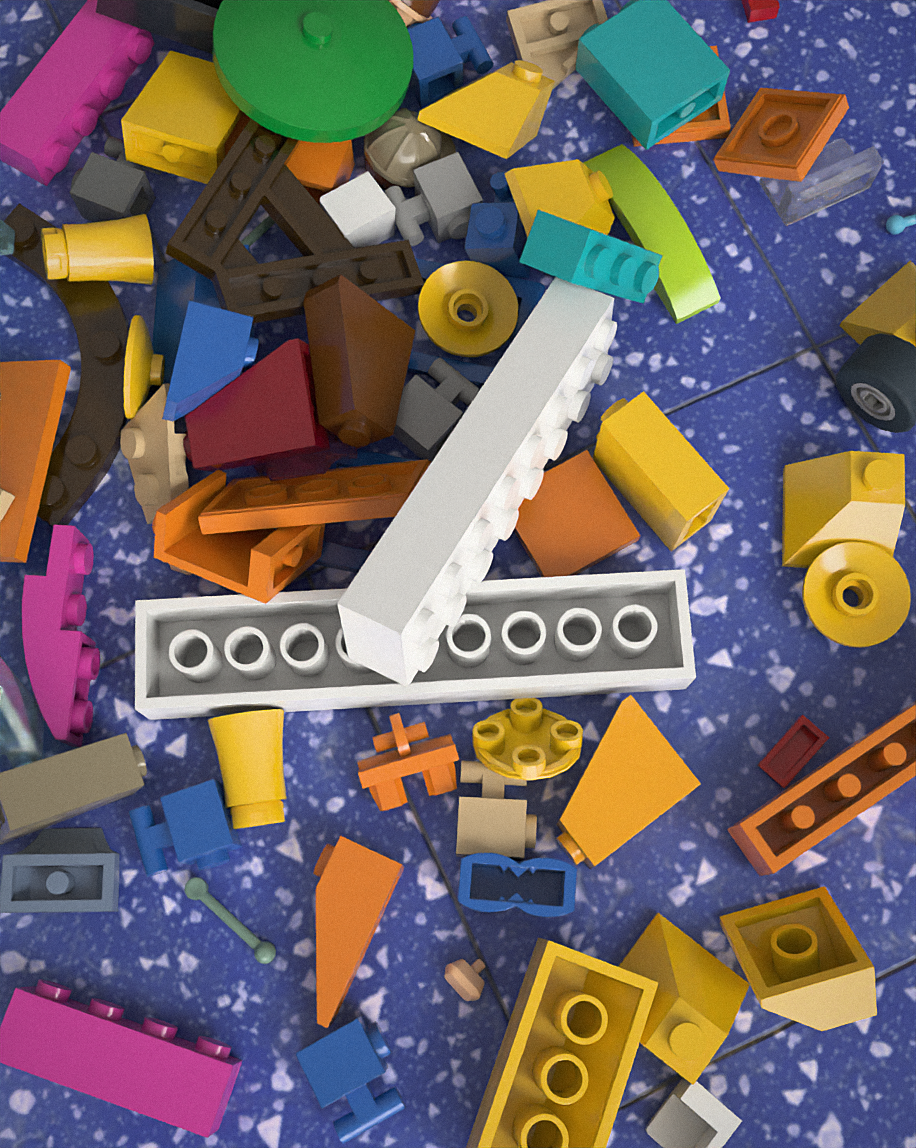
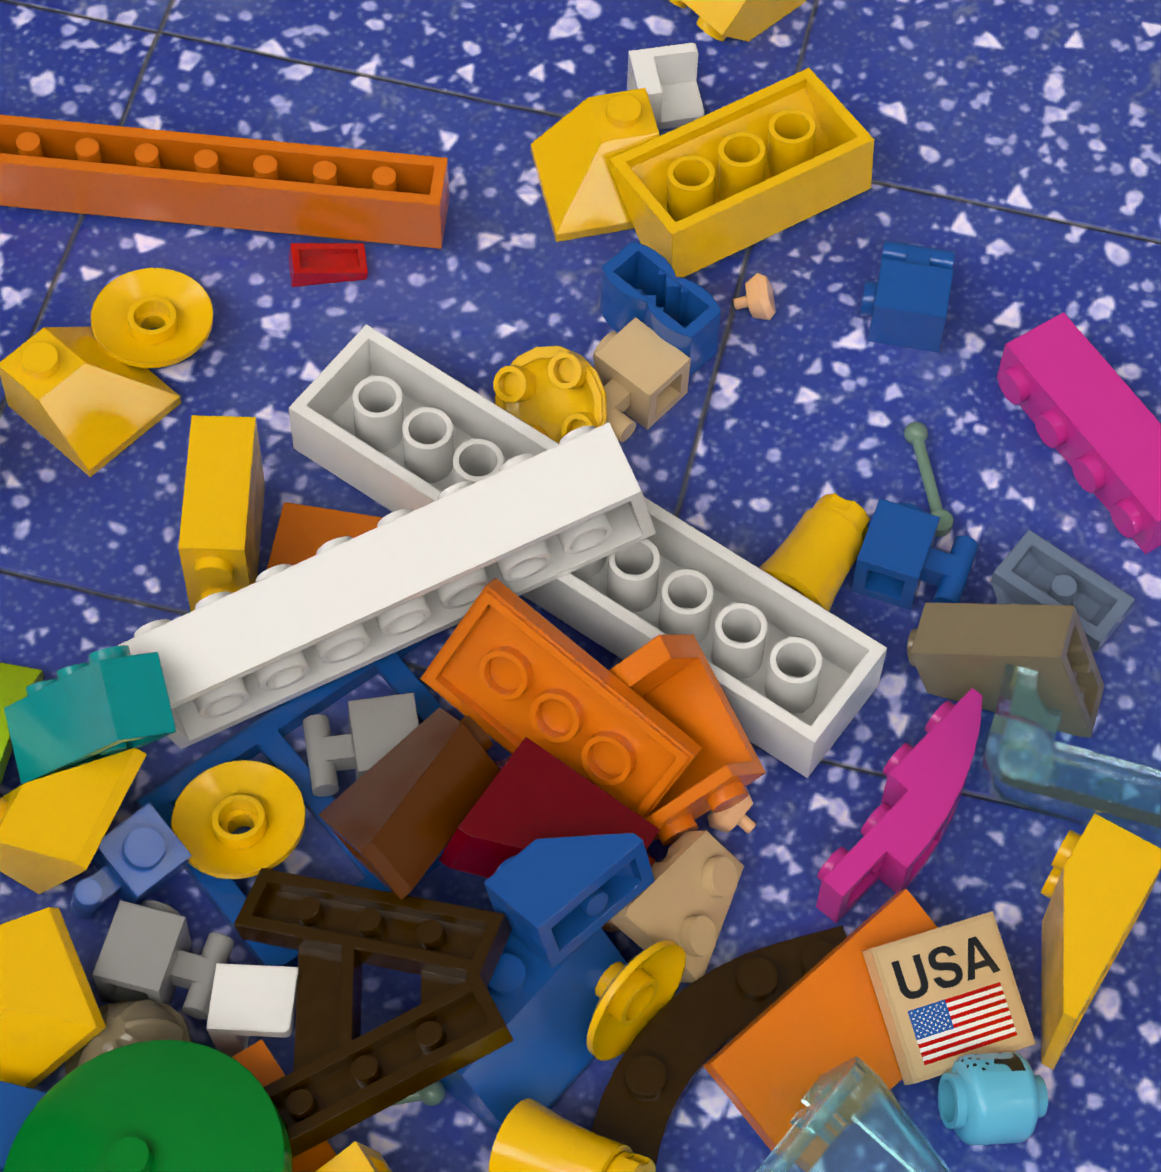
camera: 145 degrees left, 15 degrees down
(349, 907) = (810, 402): orange slope -> none
(384, 771) = (674, 472): orange hips -> none
(623, 787) = (499, 313): light orange slope -> none
(803, 960) = (478, 119): yellow slope -> none

